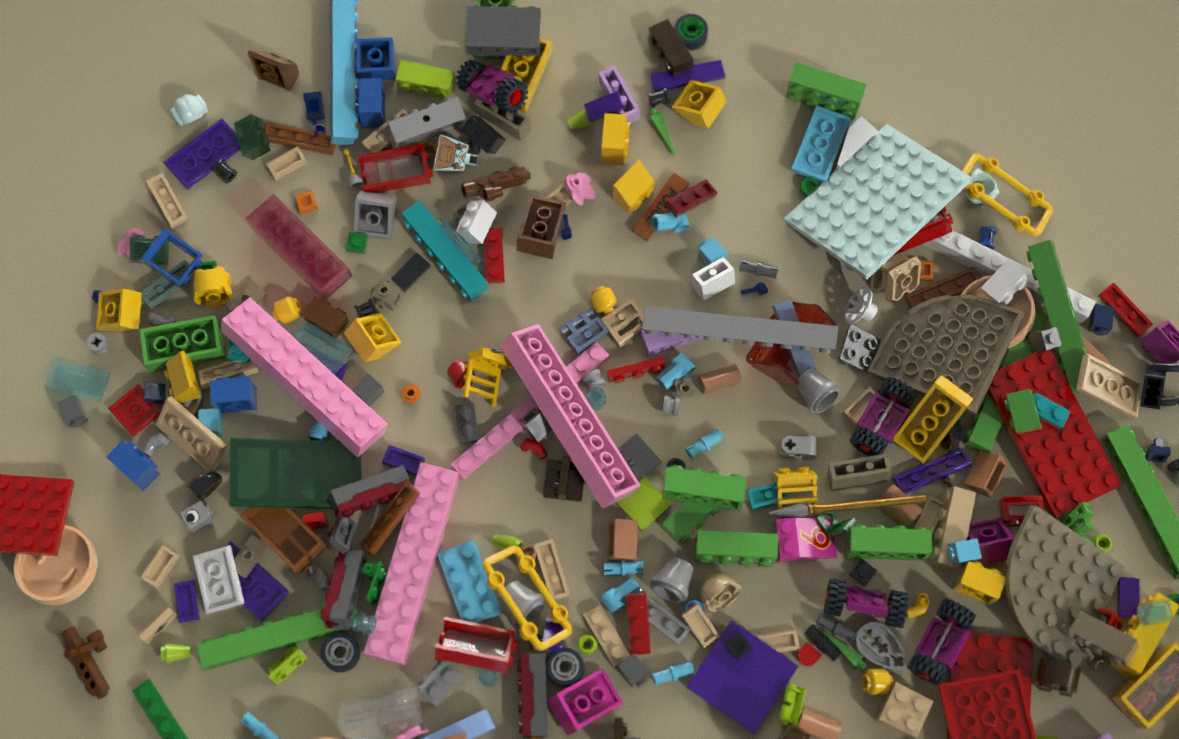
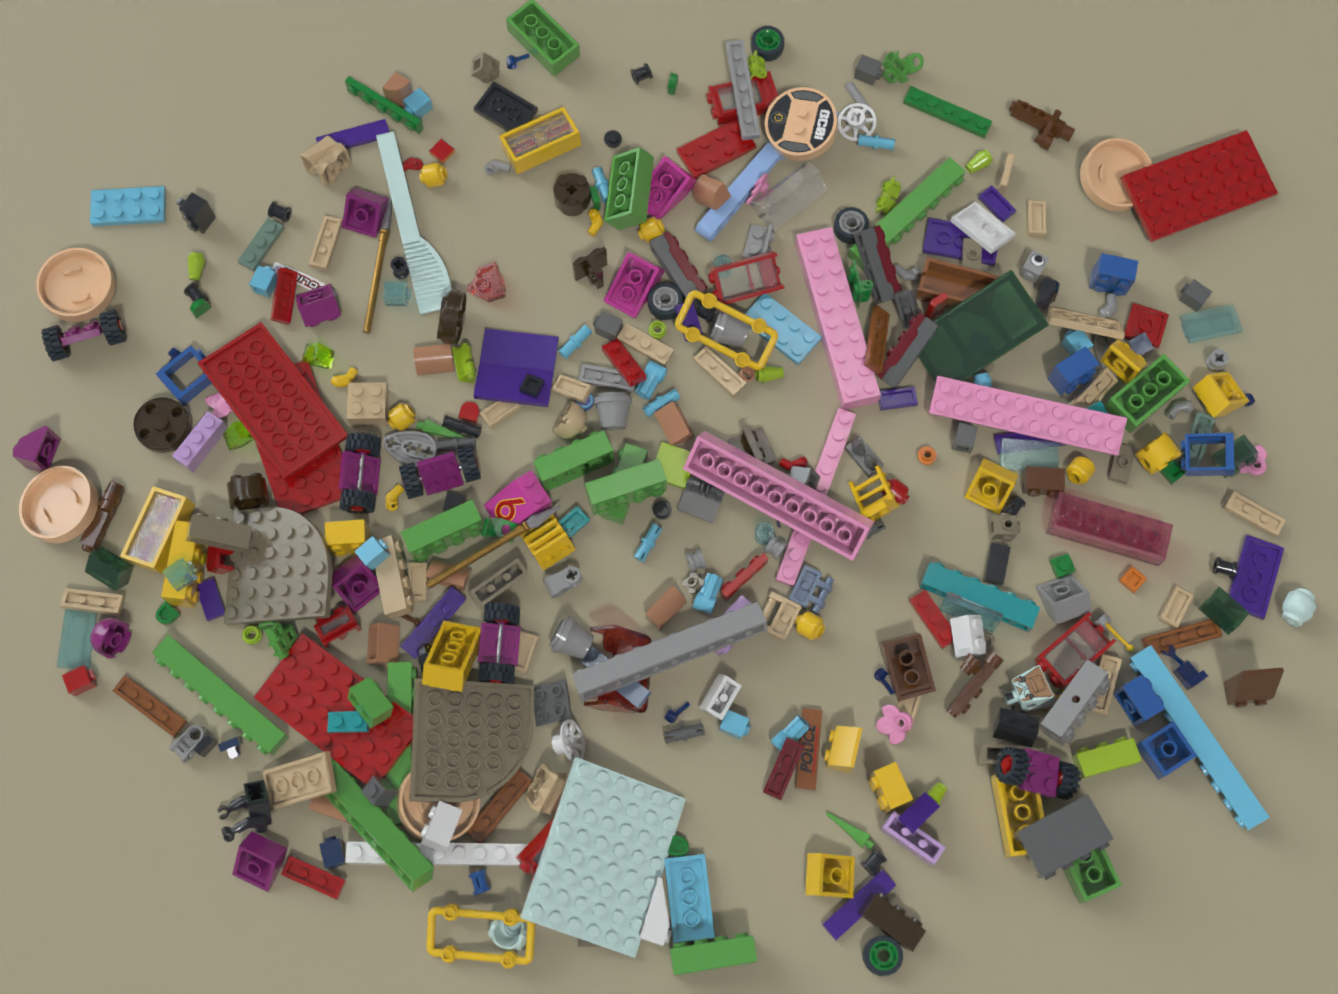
camera: 150 degrees right, 0 degrees up
(364, 623) = (845, 246): clear light blue wheel -> none
(926, 270) = (527, 817): orange tile -> none

